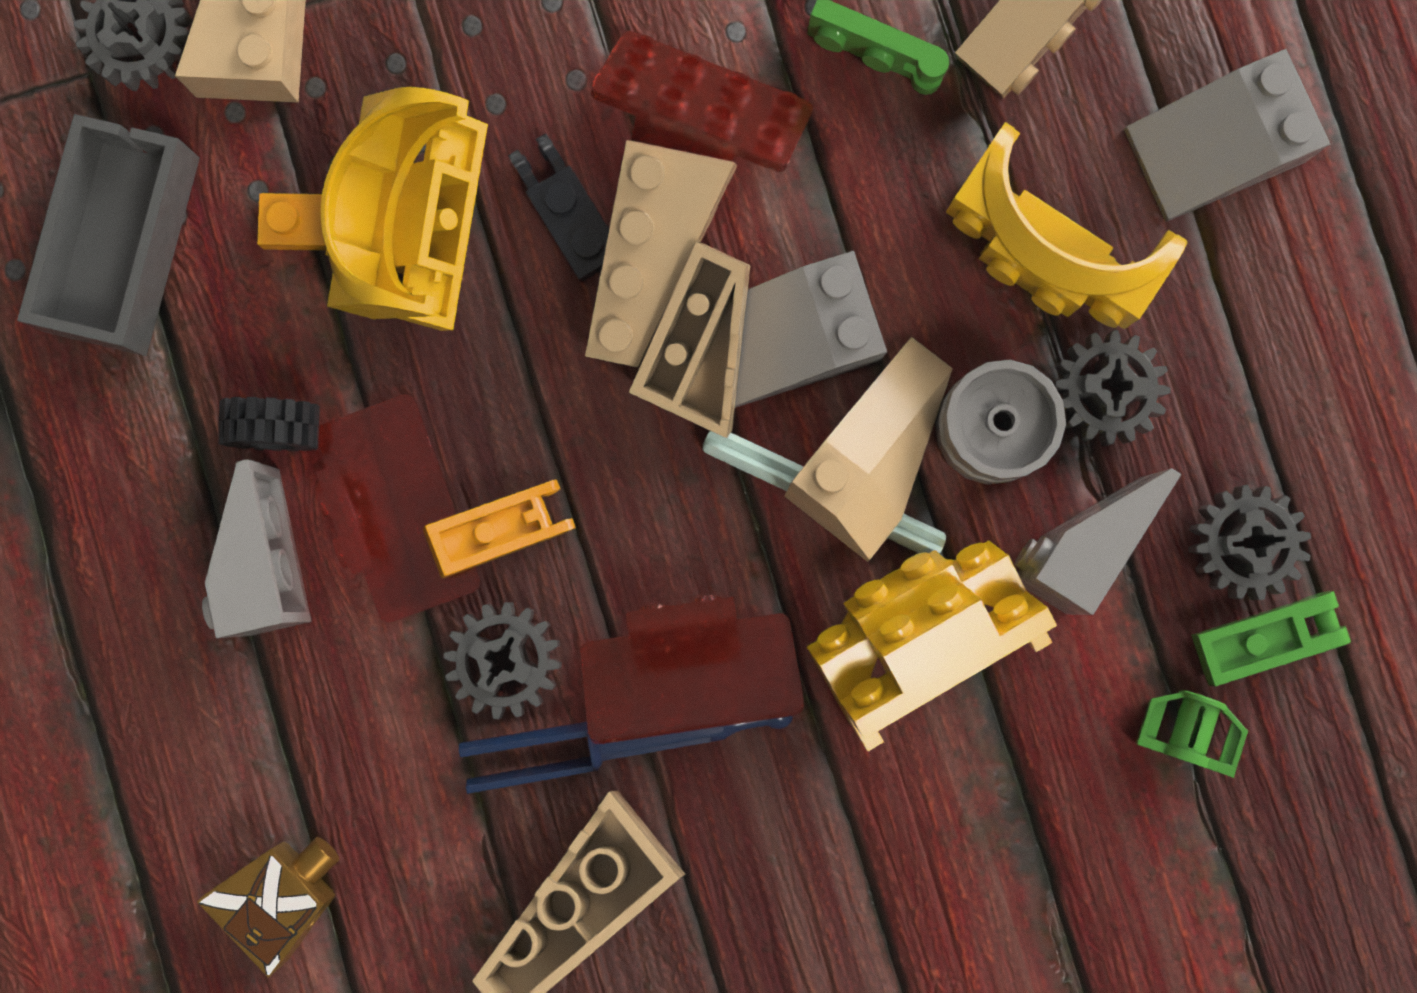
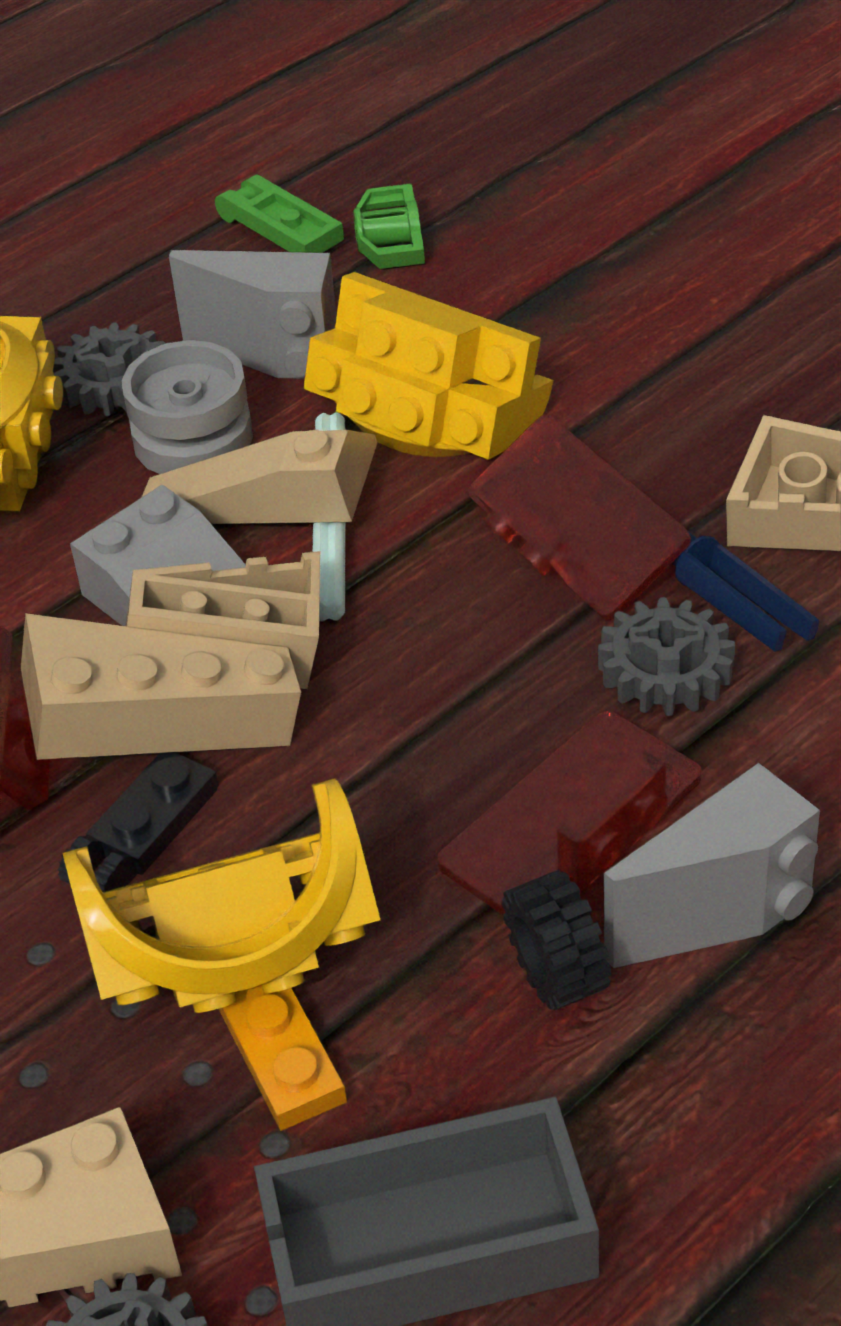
camera: 110 degrees left, 40 degrees down
(494, 530) = (537, 713): light orange hinge -> none
(1246, 519) = (199, 233): dark grey gear -> none

